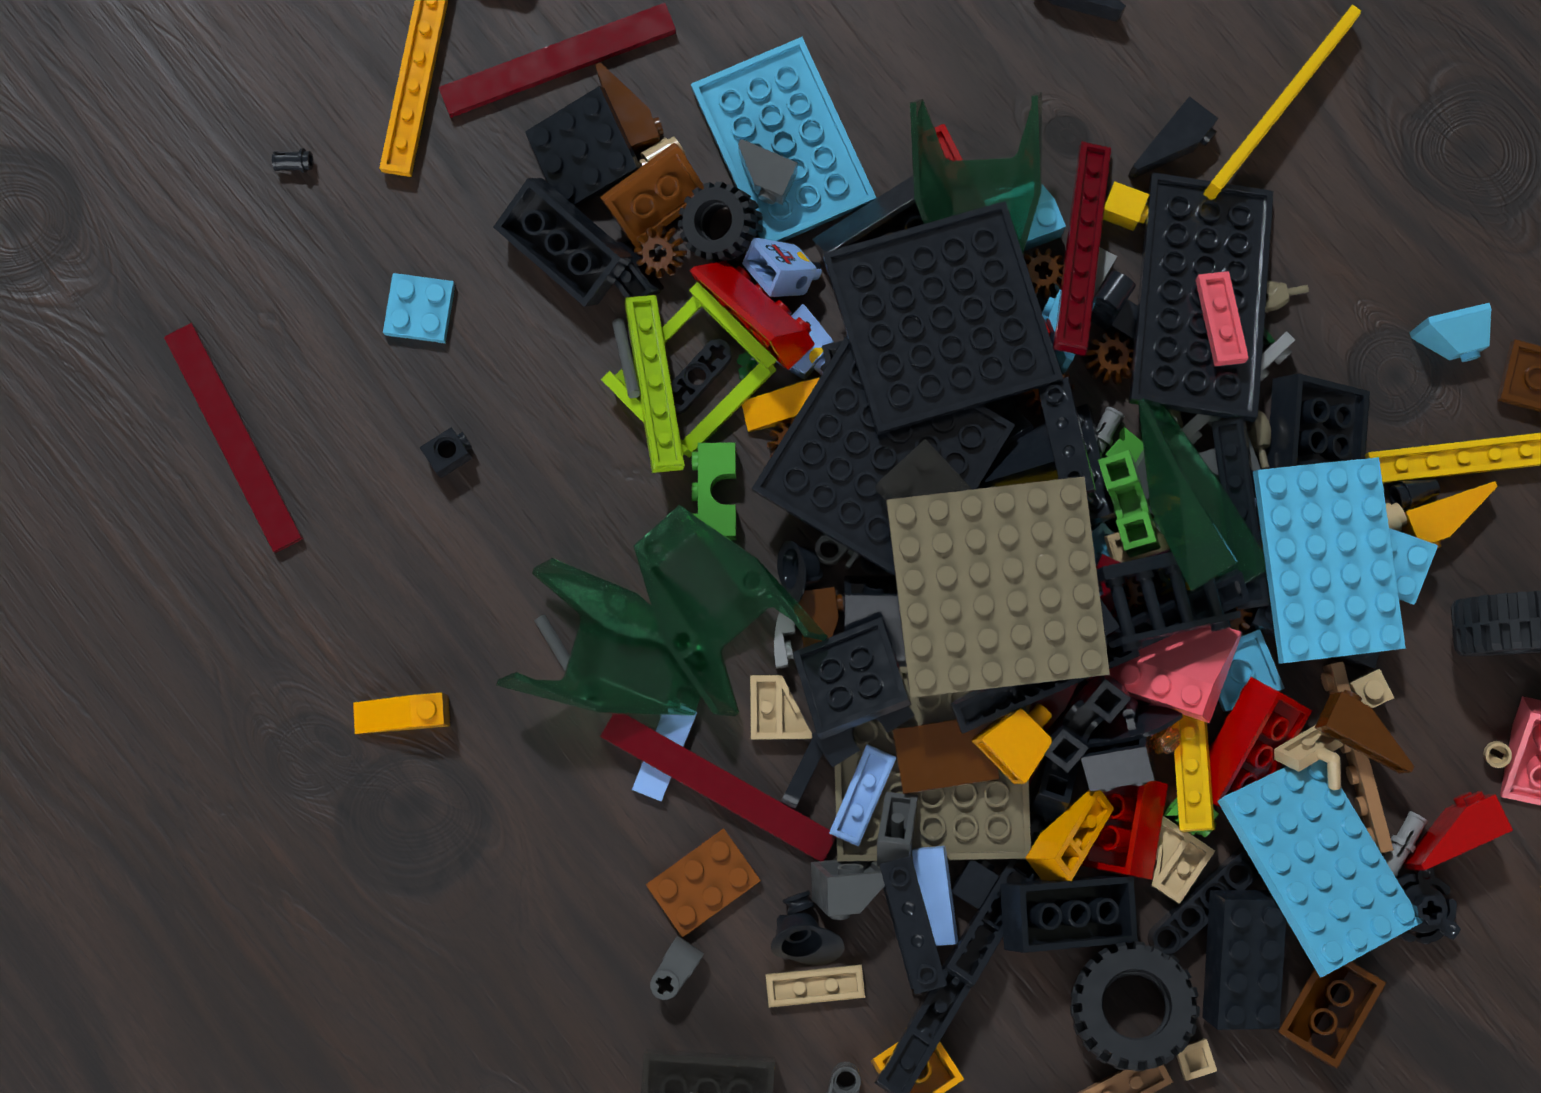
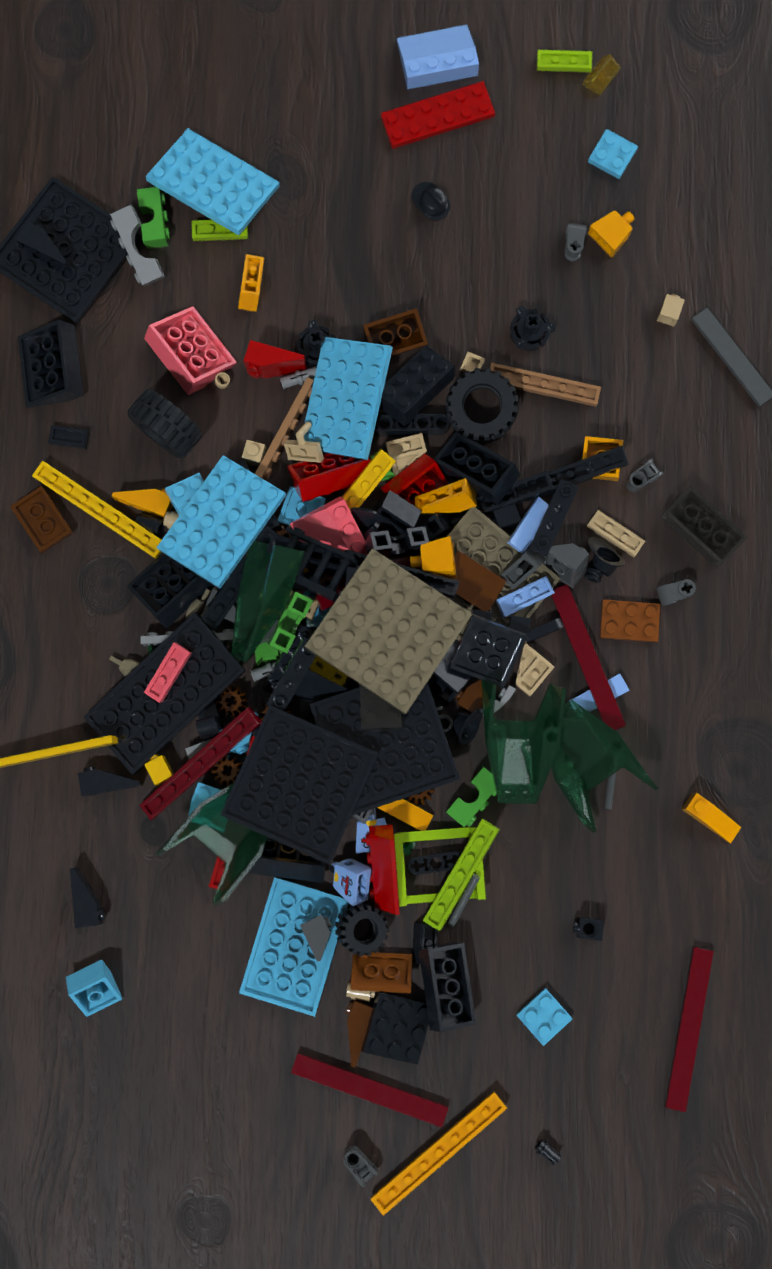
camera: 140 degrees left, 0 degrees up
(652, 241) = (409, 940): reddish brown gear -> none
(1166, 740) = (367, 503): clear orange plate -> none
(1362, 730) = (275, 439): reddish brown slope -> none
(1456, 333) = (64, 575): medium azure slope -> none

